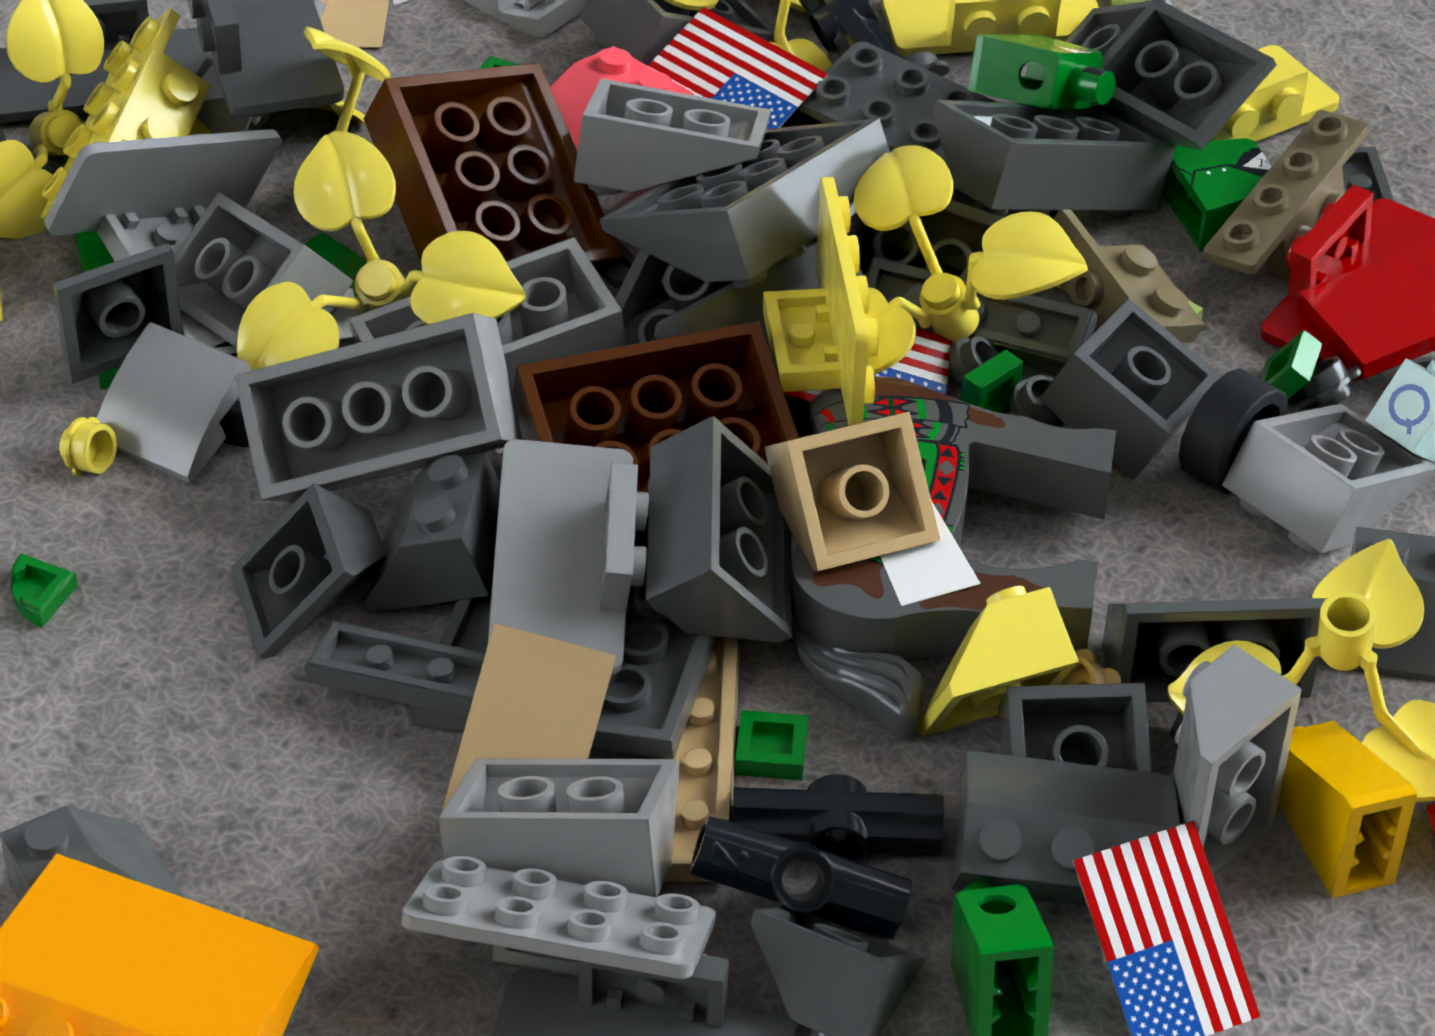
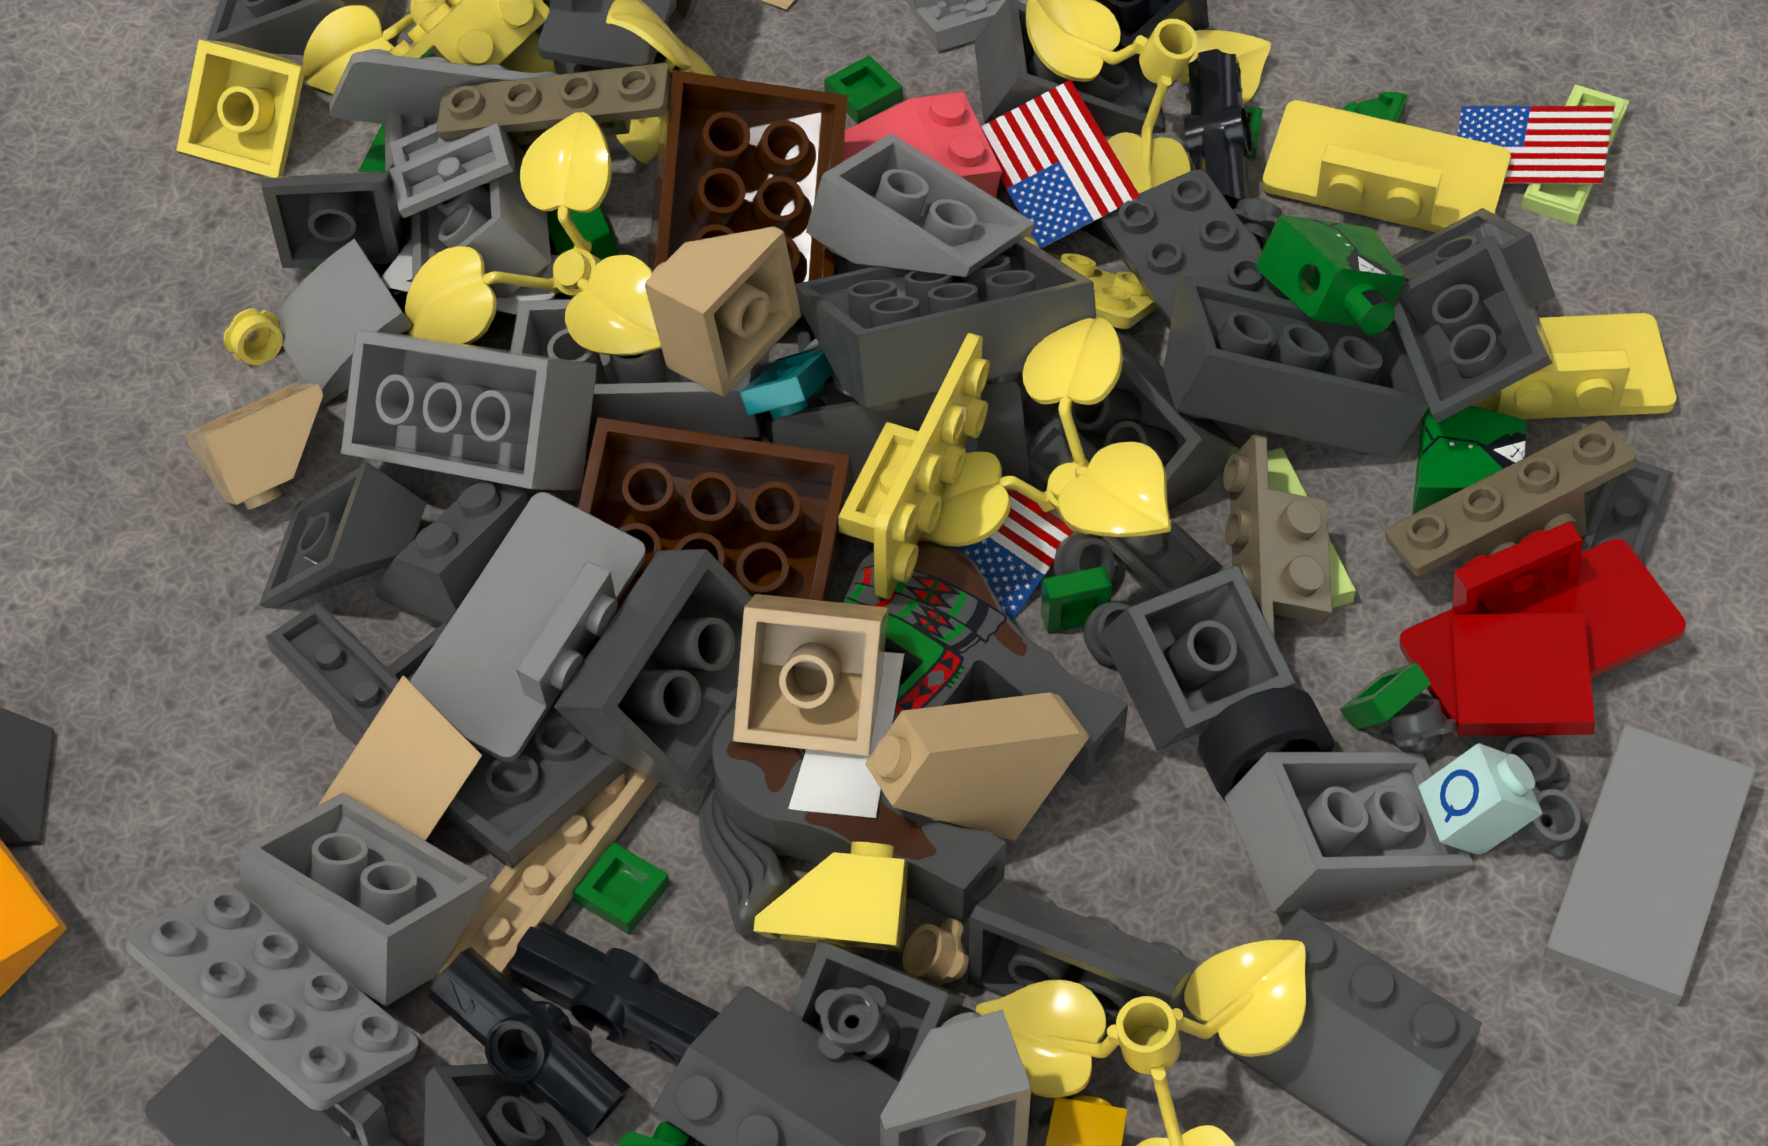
camera: 30 degrees right, 10 degrees up
(40, 588) = (128, 462): green tile -> none
(168, 522) = (257, 444): none -> tan slope
(208, 220) = (439, 169): none -> light grey slope
(272, 152) = (538, 103): none -> dark tan bracket
(571, 239) = (723, 305): none -> tan slope
(650, 296) = (787, 384): none -> teal plate
(1036, 504) = (978, 760): none -> tan slope
(1086, 719) = (849, 1002): none -> dark grey plate

